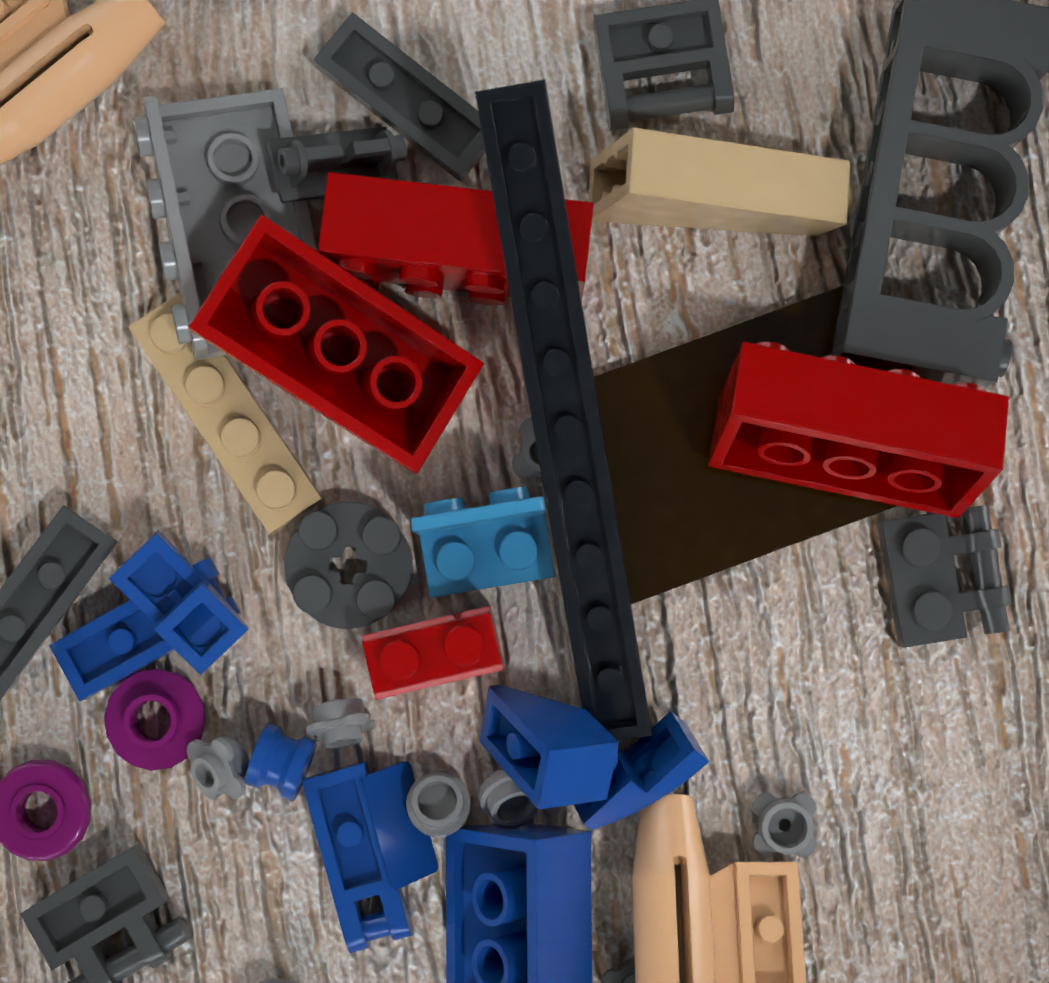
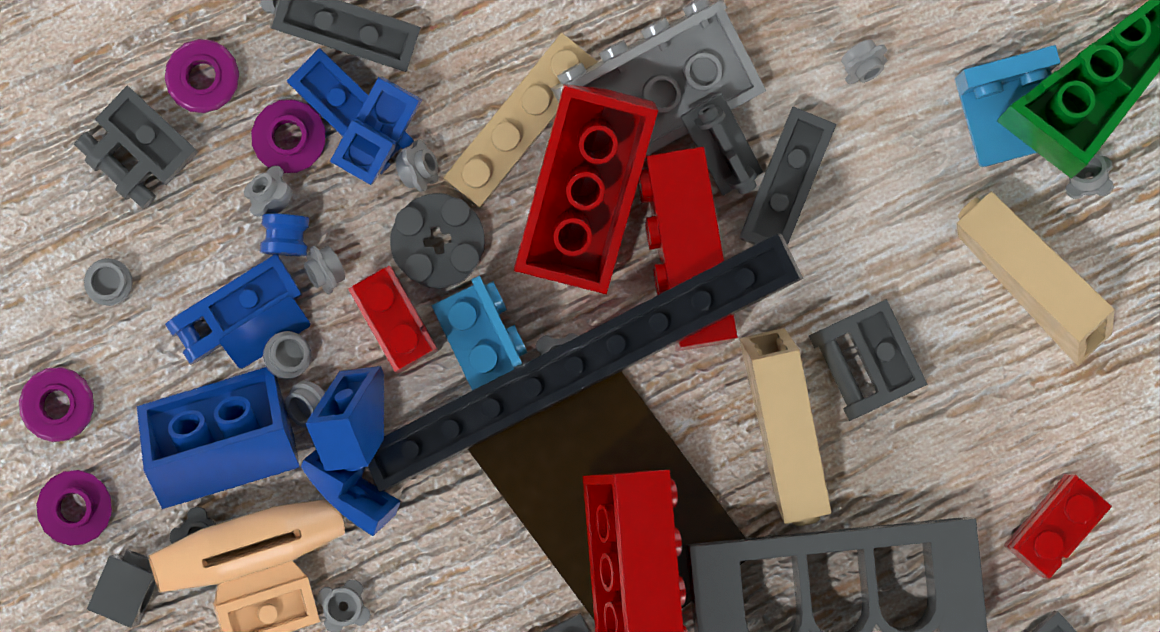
camera: 65 degrees right, 0 degrees up
(243, 562) = (417, 166): none -> light grey plate

